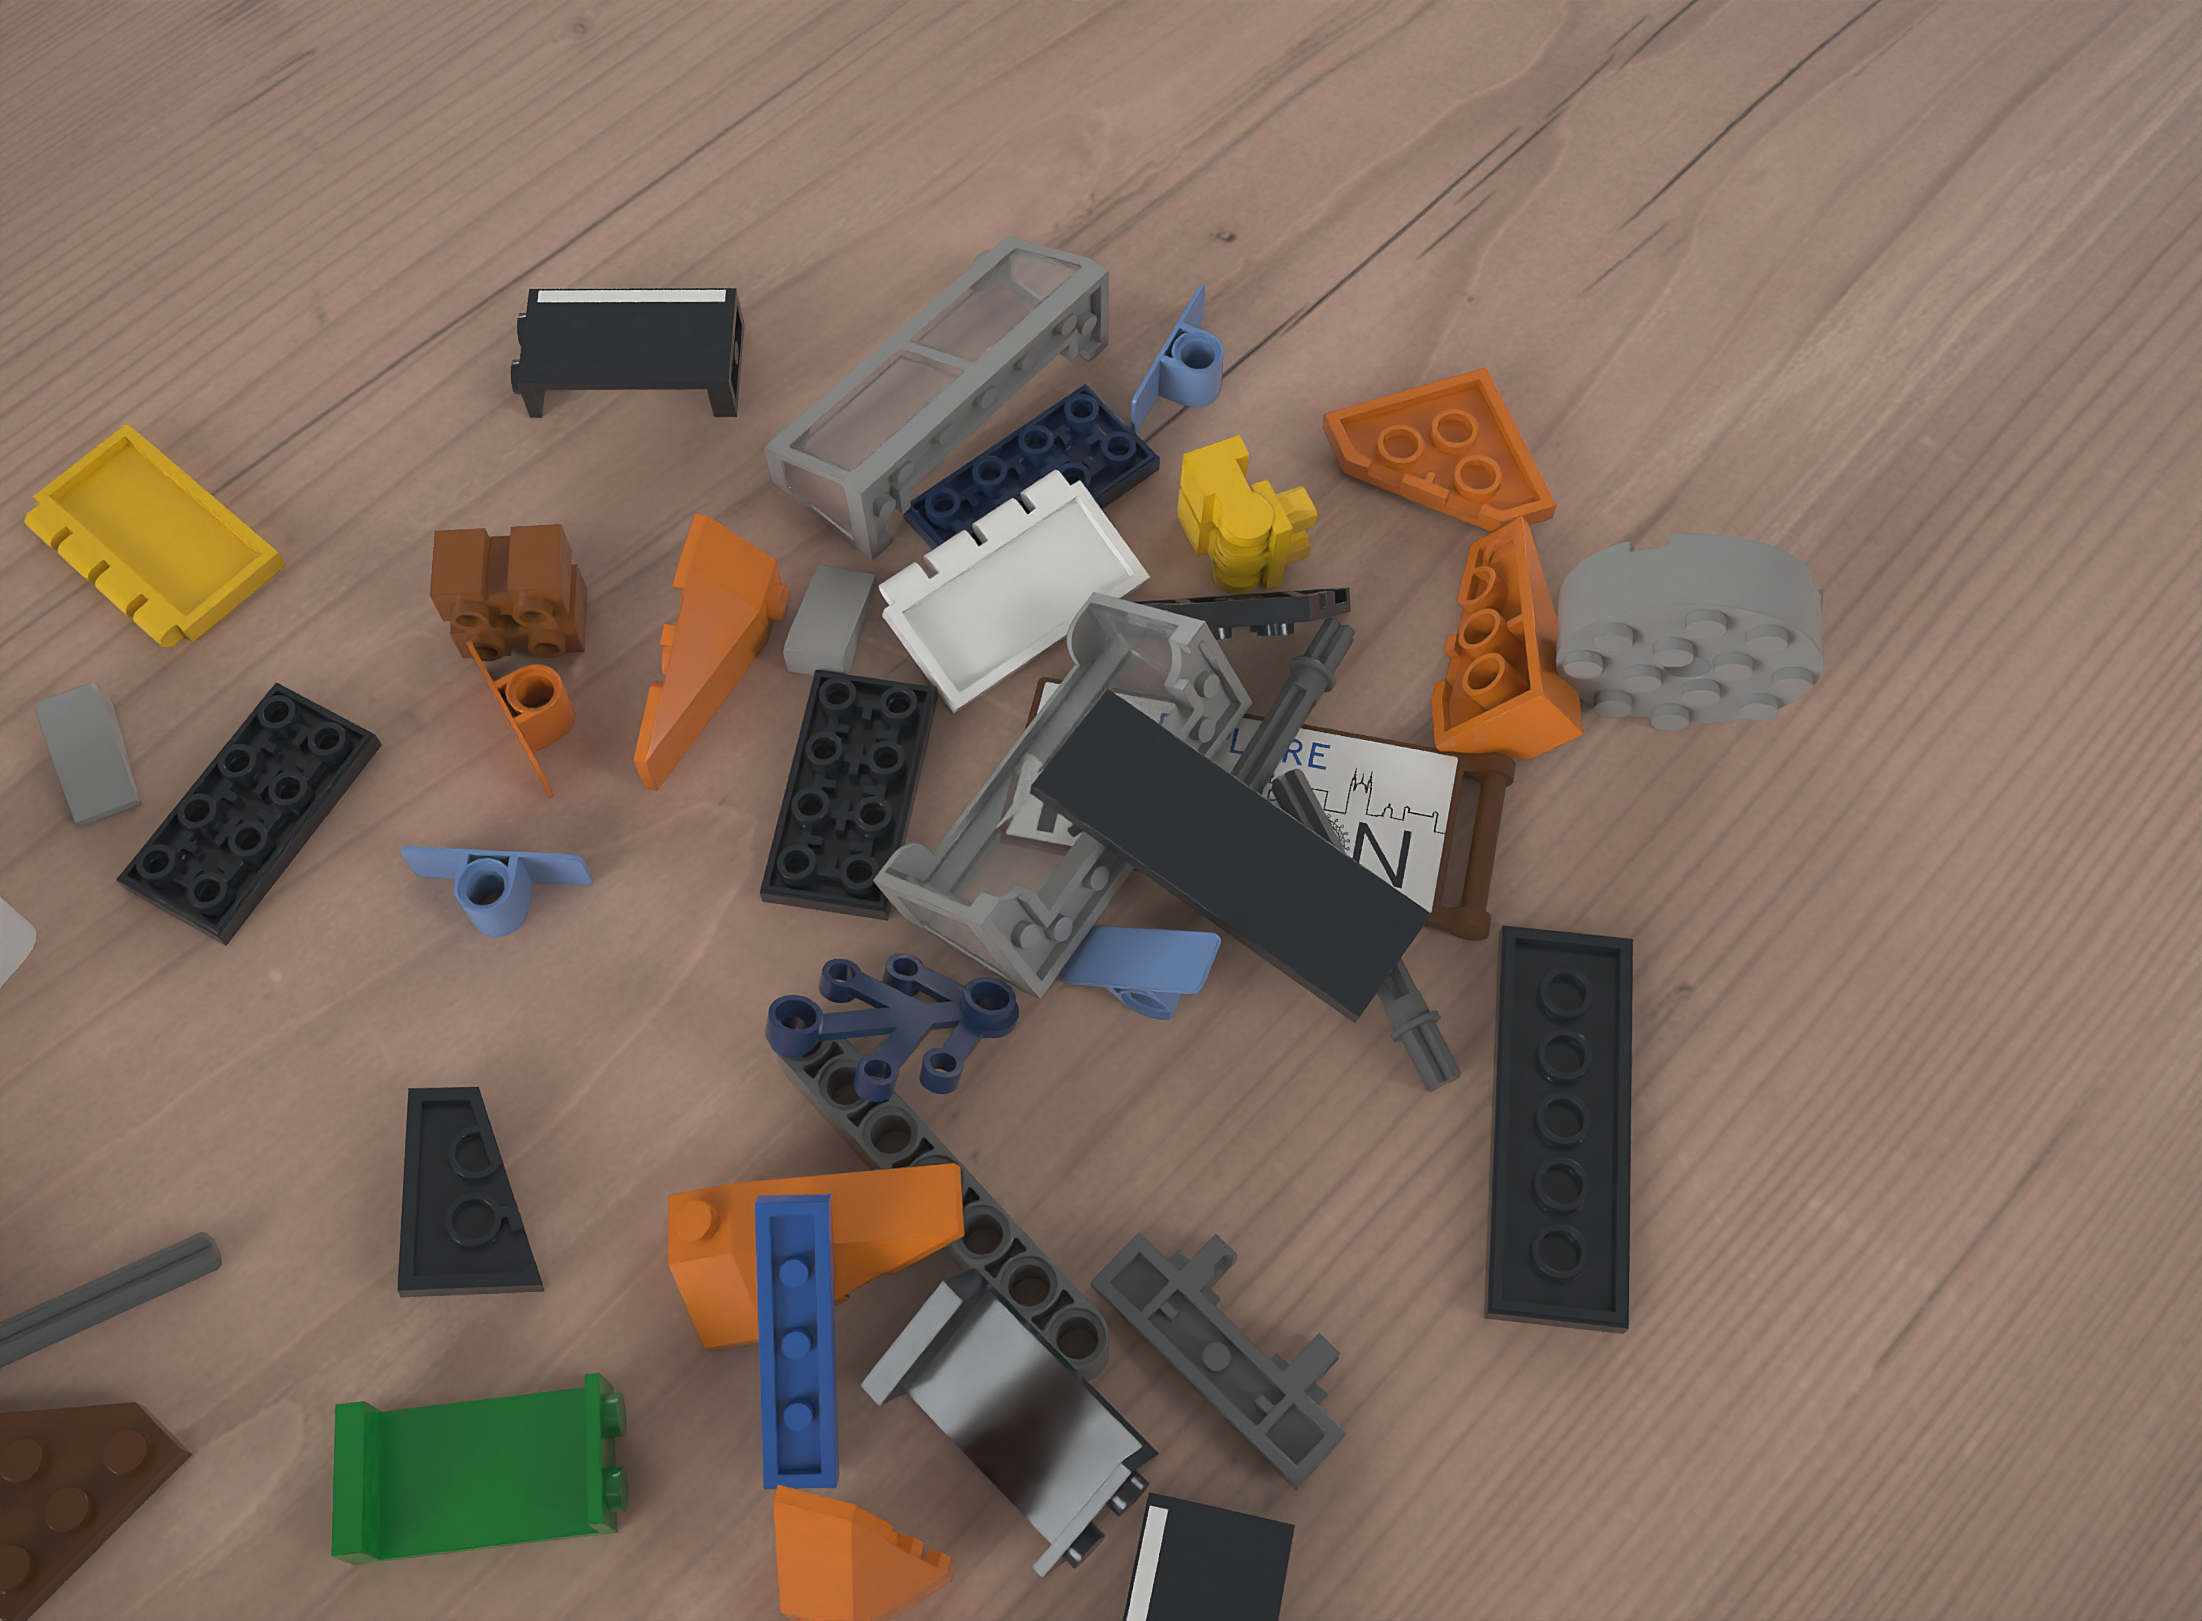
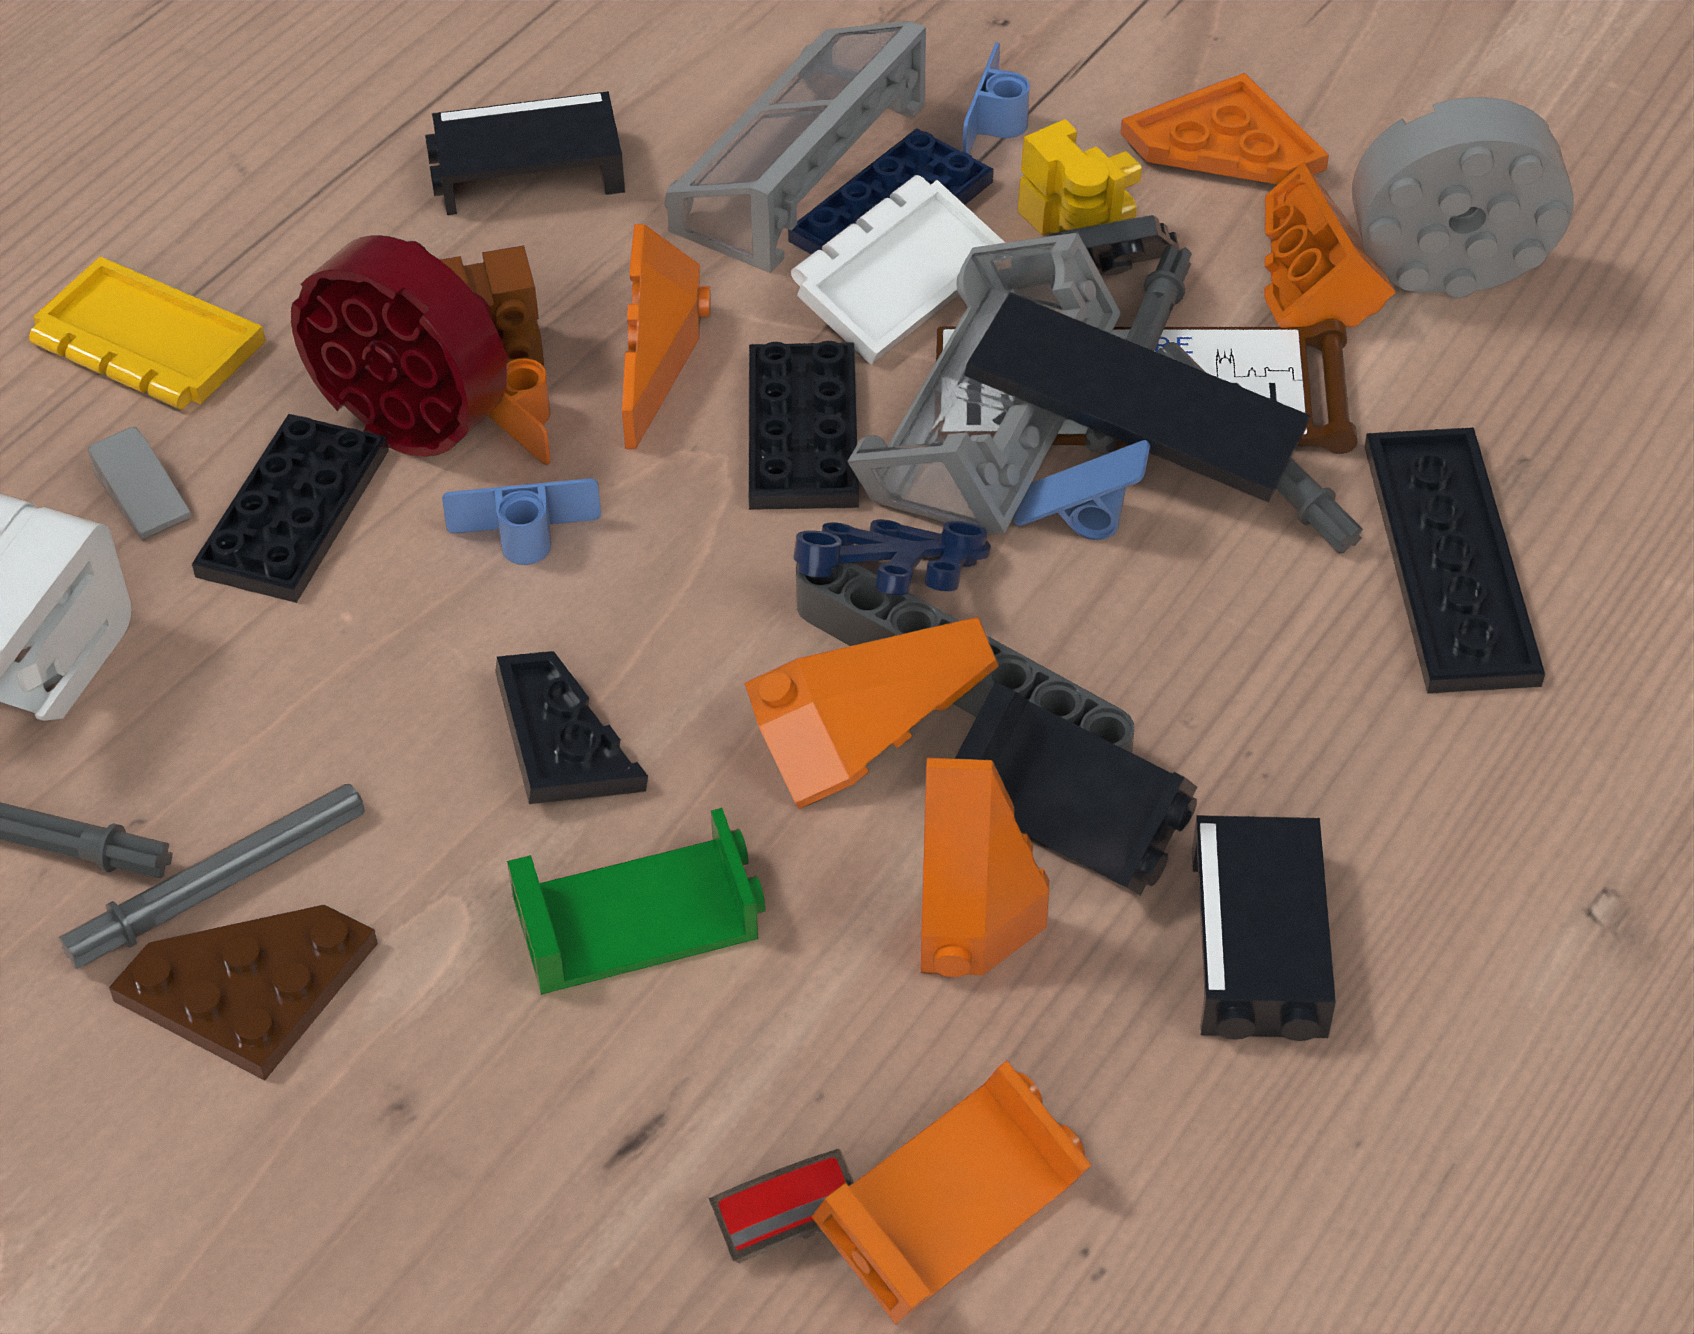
camera: 10 degrees left, 15 degrees down
(385, 644) = (400, 344): none -> dark red brick
(797, 1341) = (881, 754): blue plate -> none
(829, 621) = (749, 314): light grey slope -> none
(1260, 1397) = (1266, 761): dark grey hinge -> none

